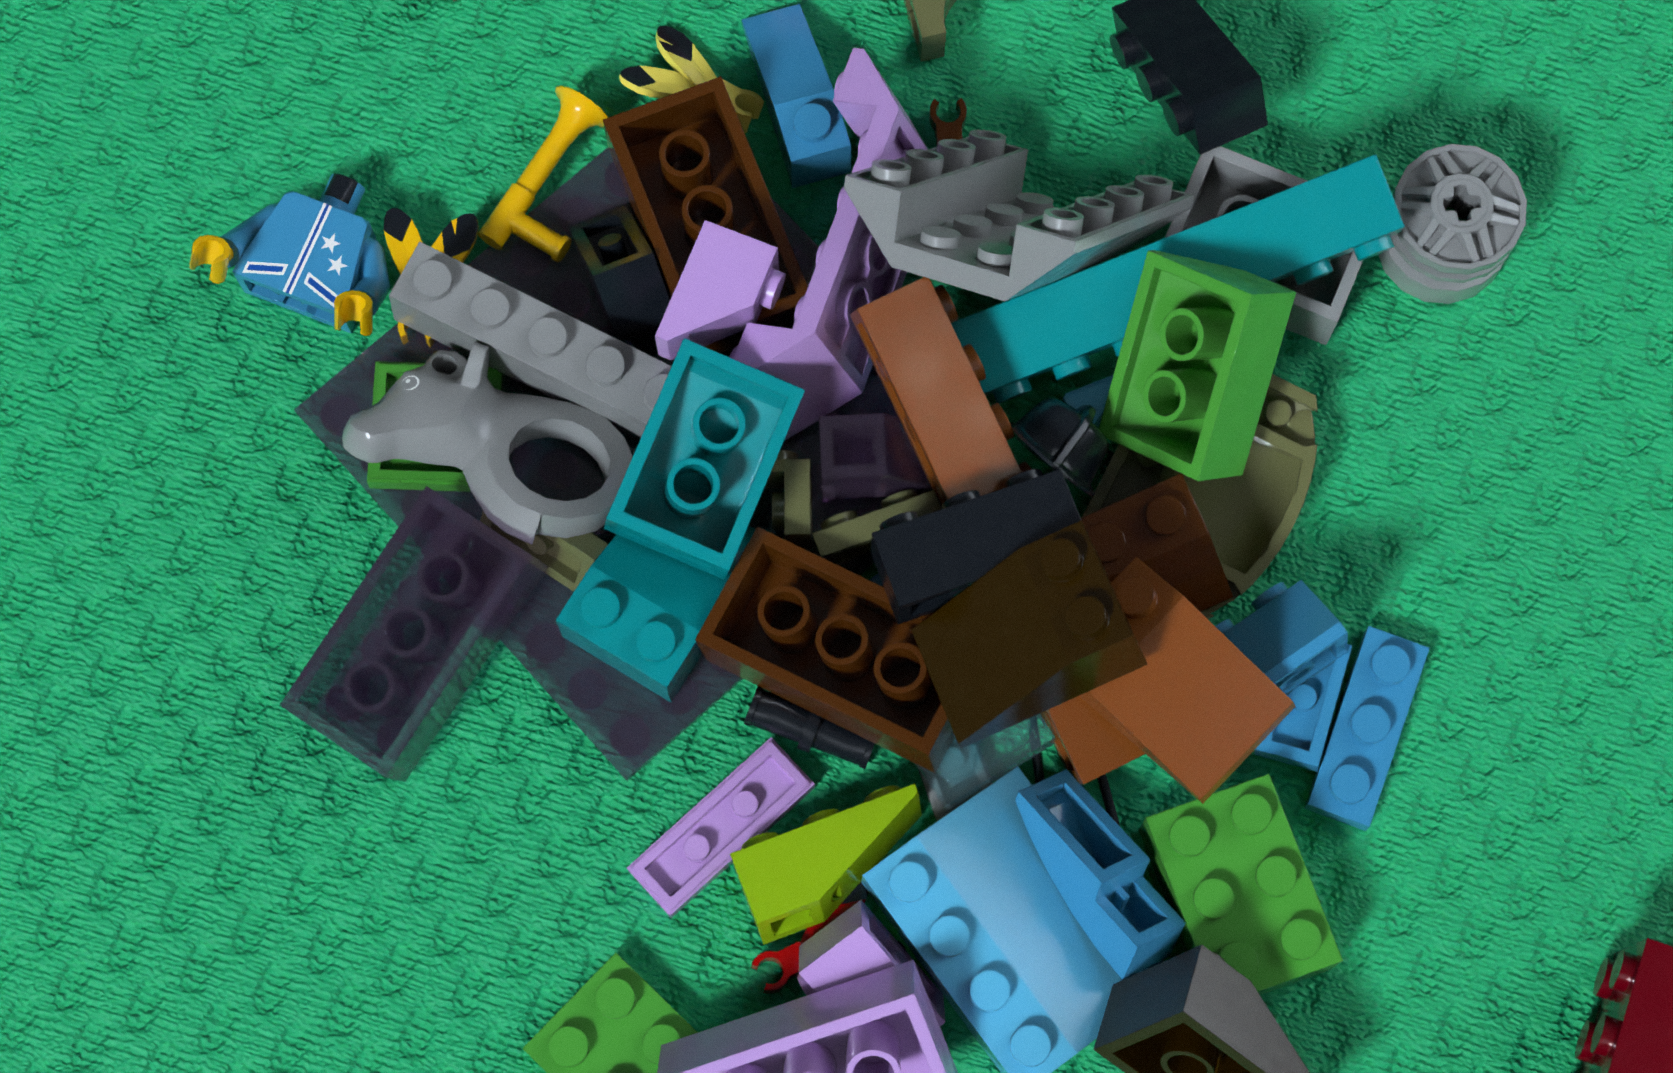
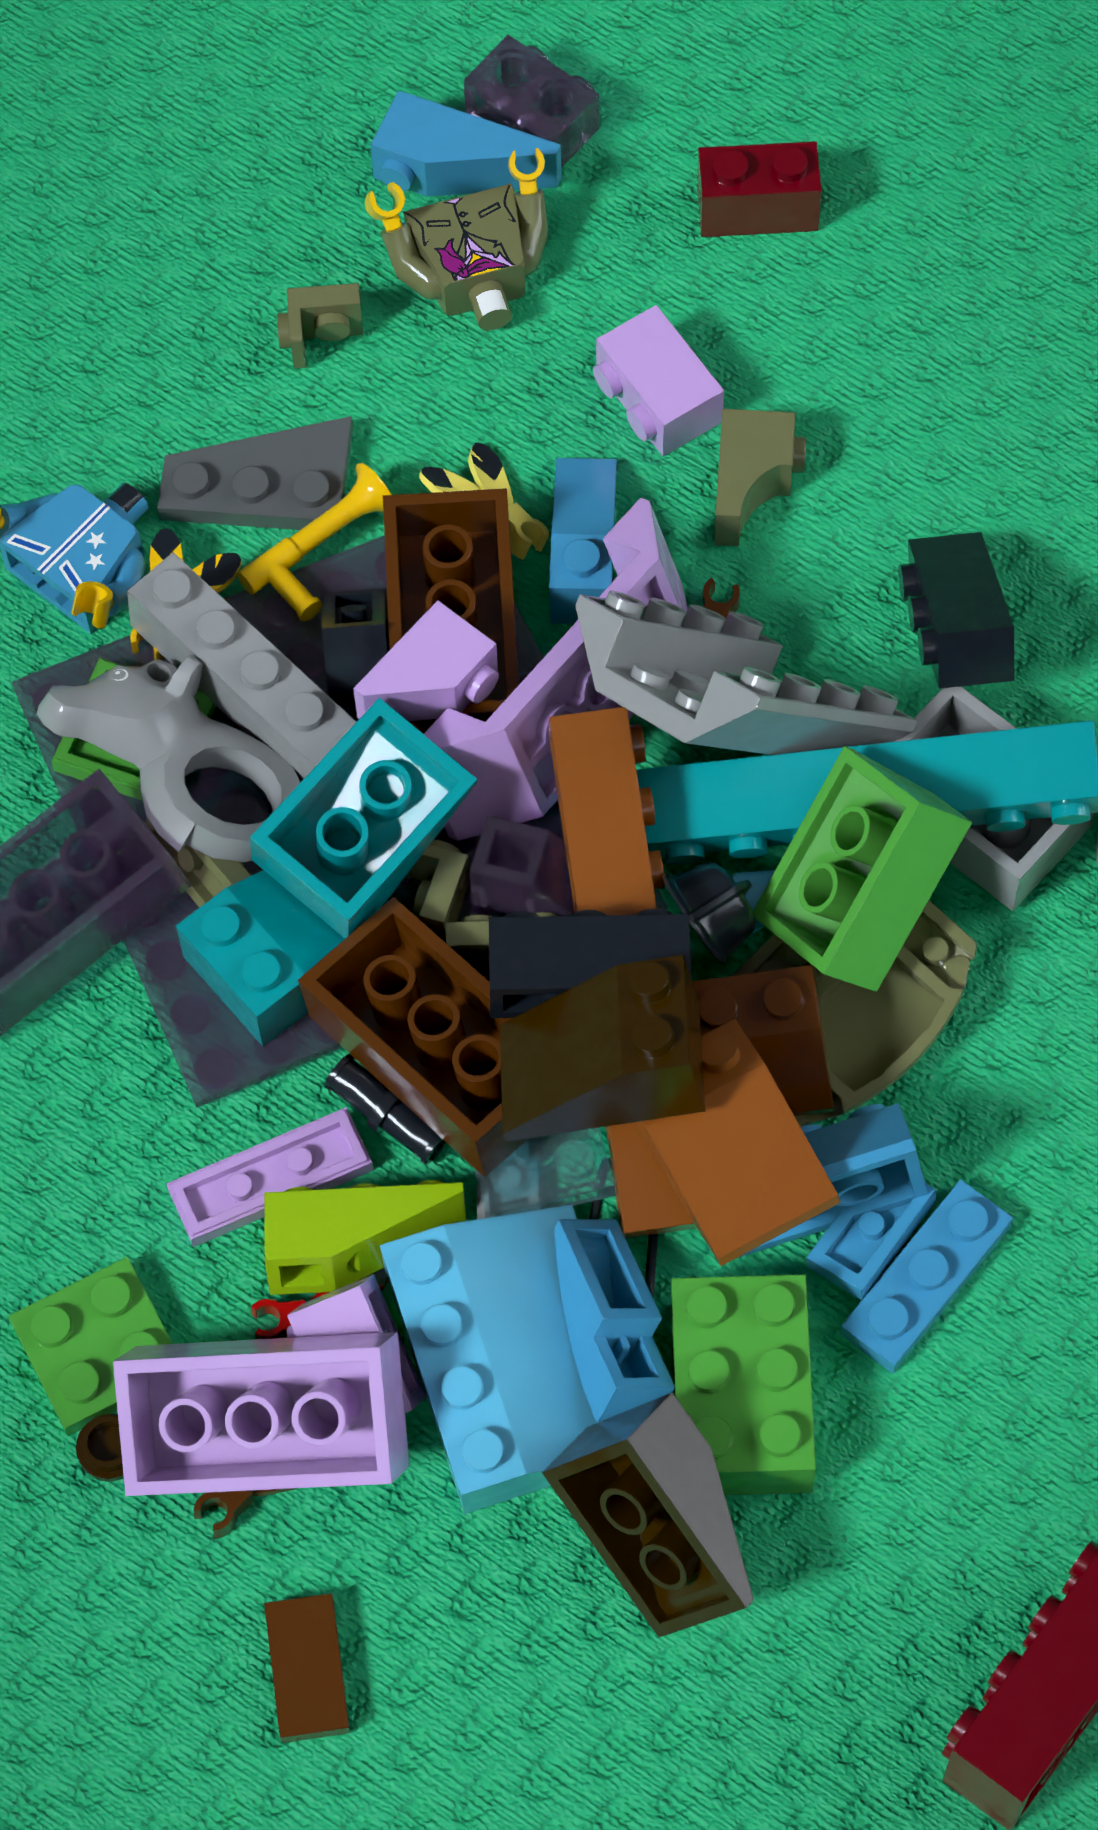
camera: 20 degrees right, 10 degrees down
(464, 128) = (260, 480): none -> dark grey wing

